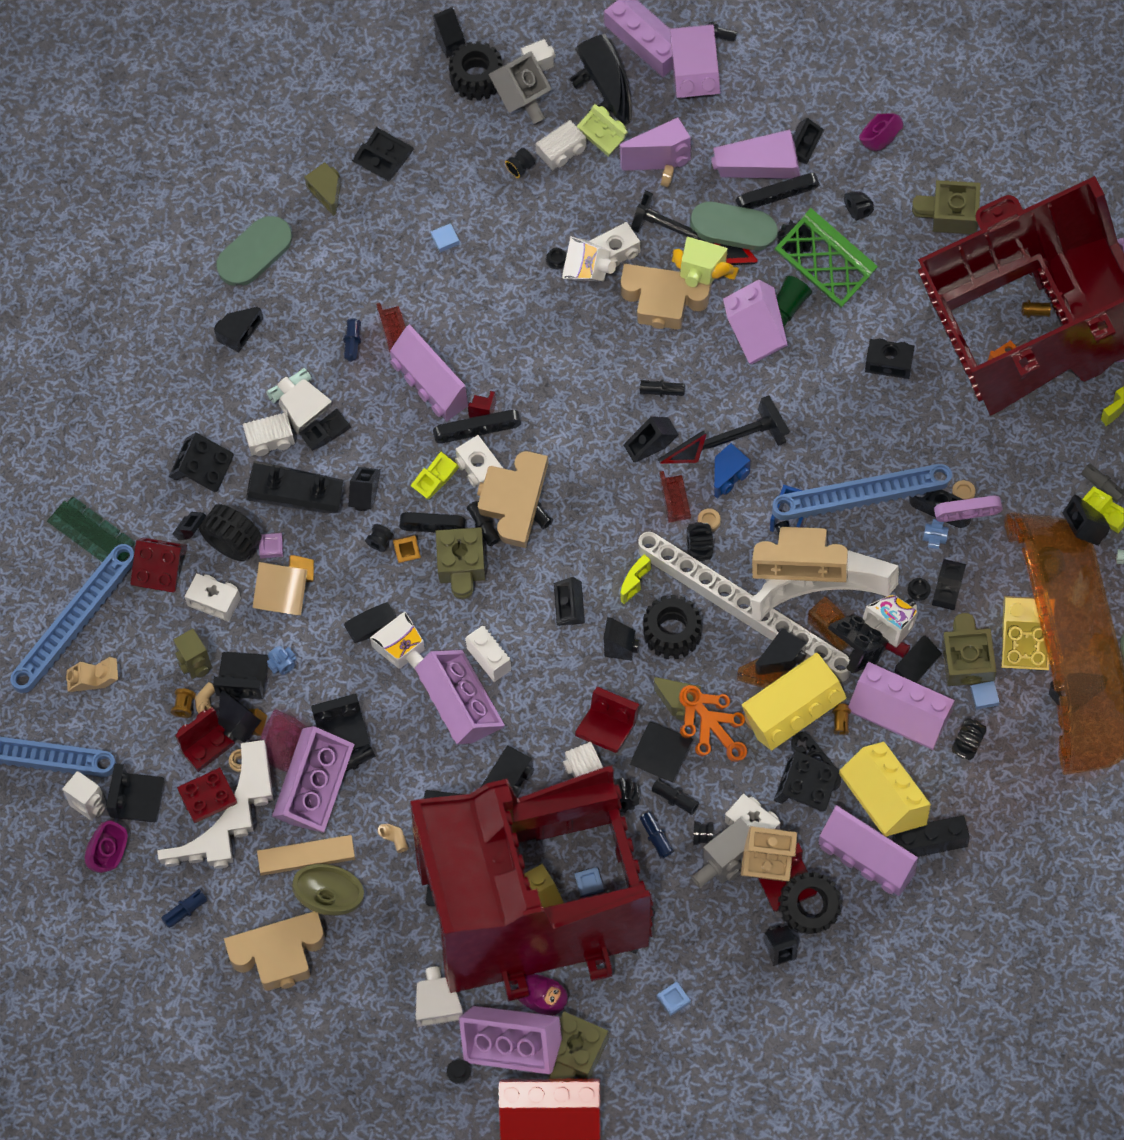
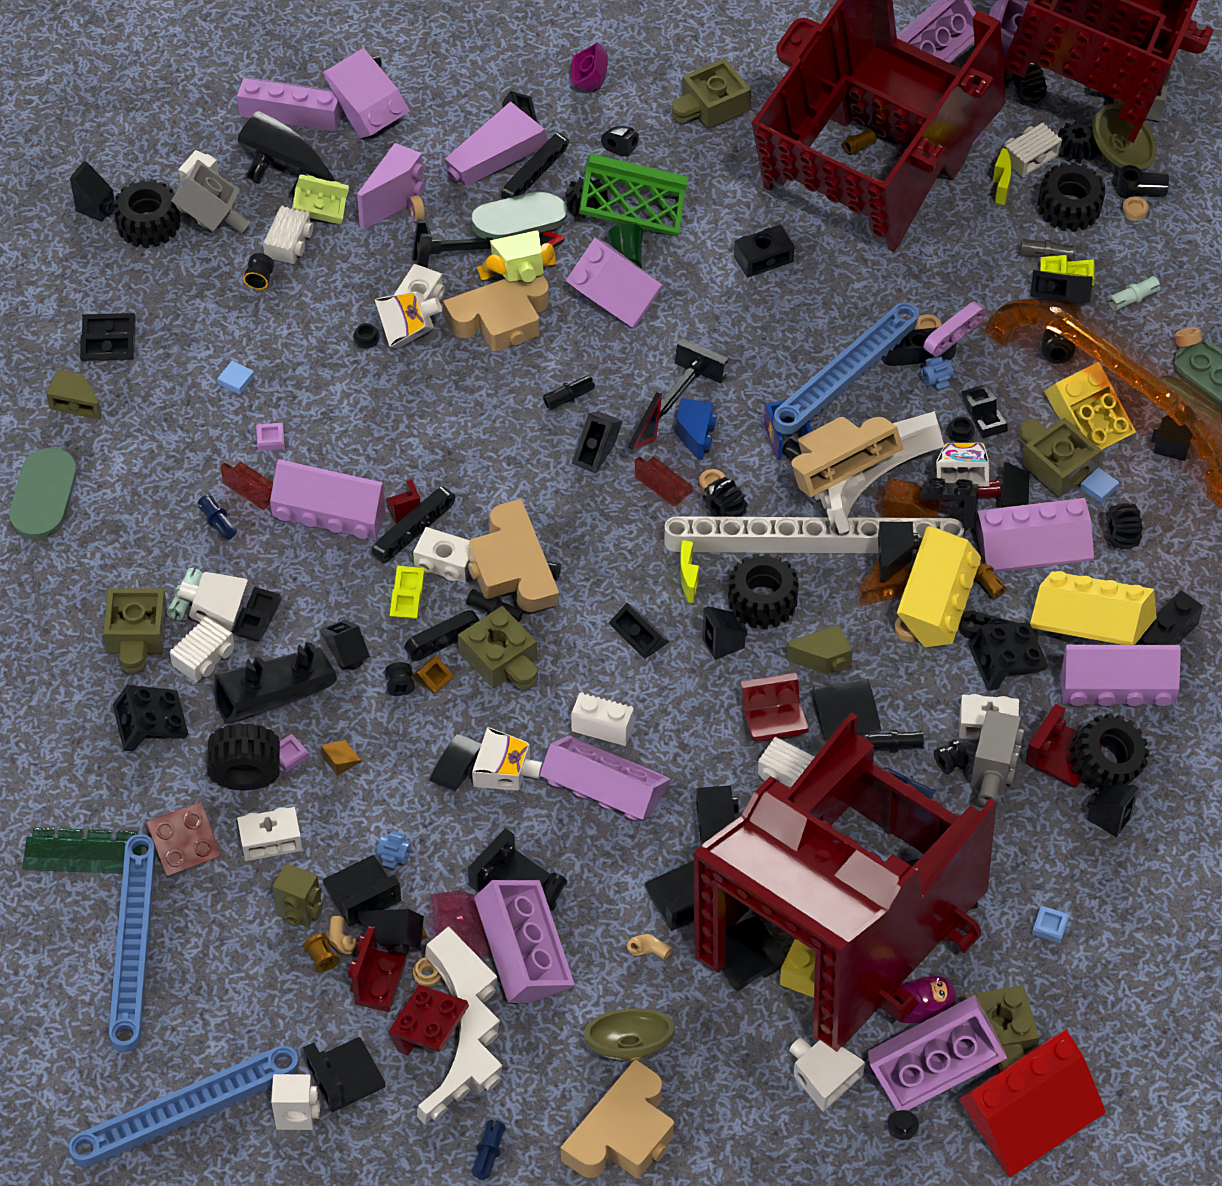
camera: 40 degrees left, 10 degrees down
(89, 676) = (194, 990): tan slope -> none
(106, 847) = (355, 1141): magenta piece -> none
(189, 525) = (192, 779): black slope -> none
(228, 386) = (135, 625): none -> olive brick
(238, 327) = (85, 570): black slope -> none
(279, 588) = (337, 782): tan slope -> none
(305, 854) = (571, 1020): tan tile -> none
(434, 298) = (270, 436): none -> lavender tile
(710, 720) = (846, 638): orange plant -> none
(768, 853) = (1040, 726): tan slope -> none

